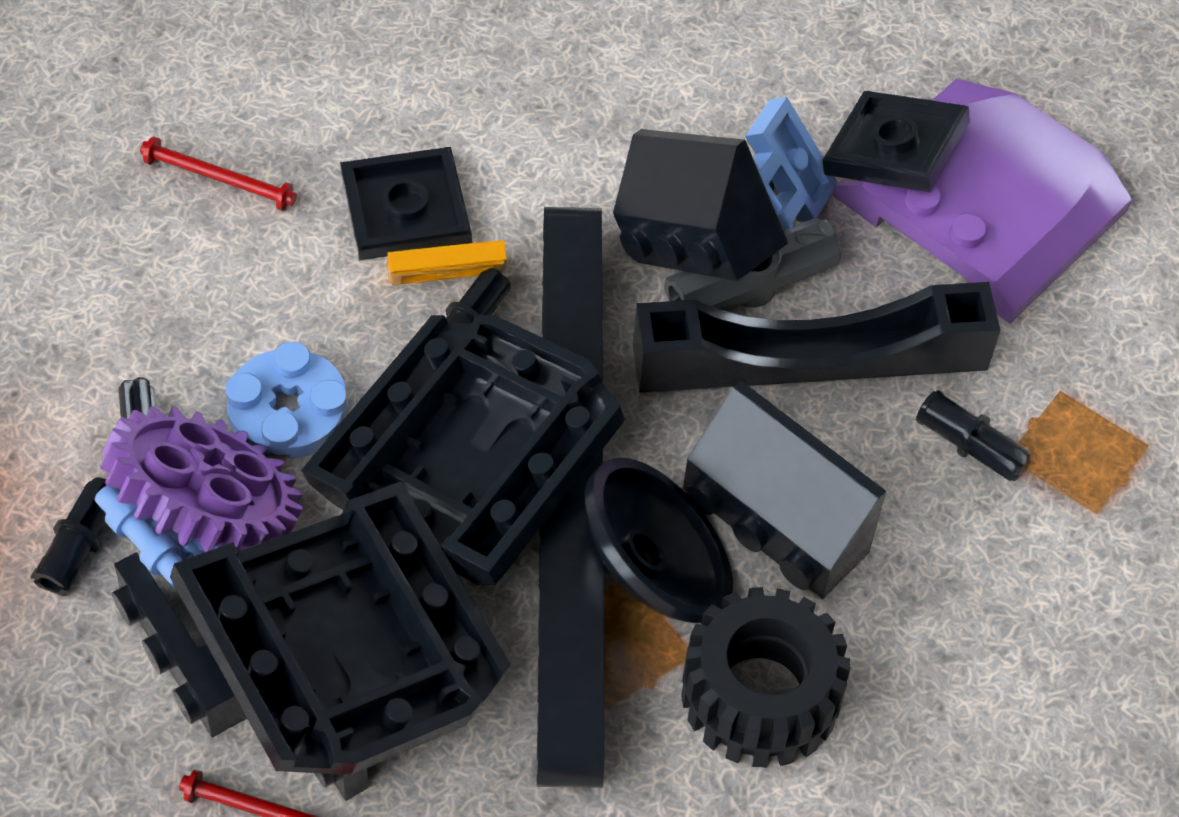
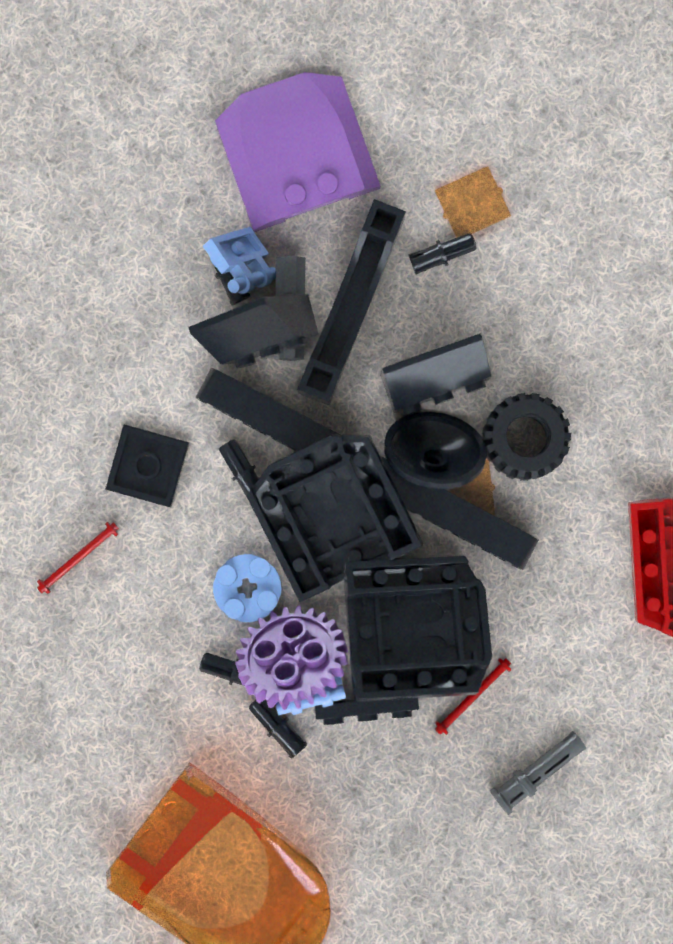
camera: 60 degrees left, 30 degrees up
(445, 262) = (204, 466): light orange tile -> none
(896, 141) = (251, 185): black tile -> none

